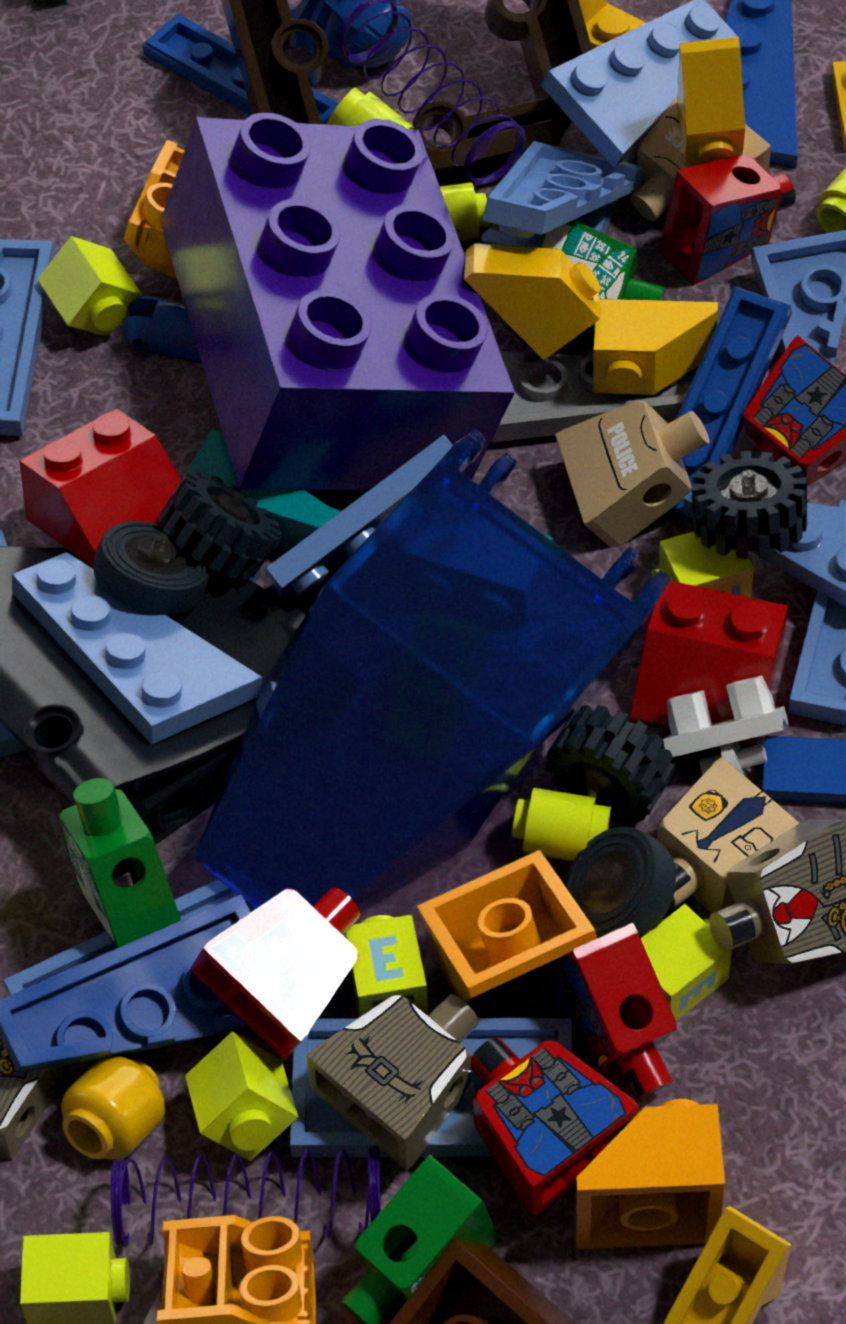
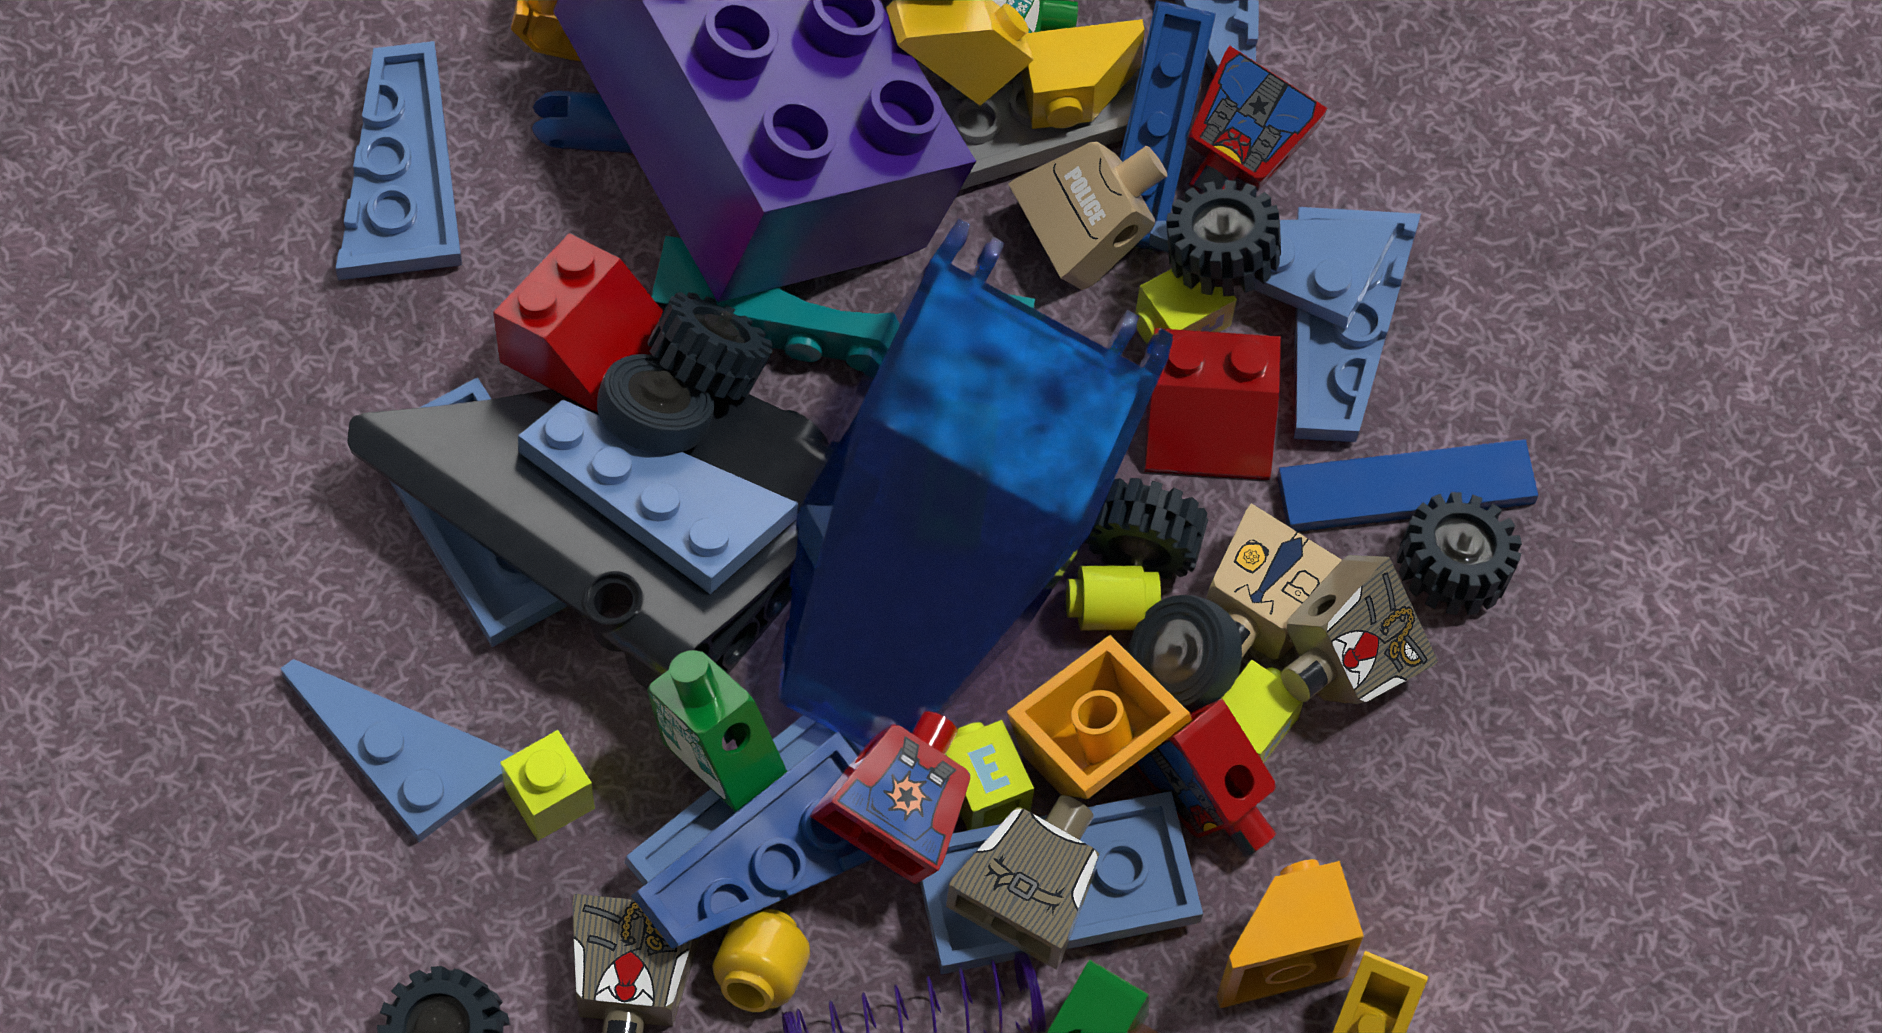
camera: 20 degrees left, 10 degrees up
(89, 286) = (490, 90): neon yellow brick -> none
(241, 1096) = (884, 928): neon yellow brick -> none
(307, 561) = (847, 327): medium blue wing -> none
(544, 1117) = (1178, 897): torso -> none
(753, 717) = (1270, 460): white hips -> none

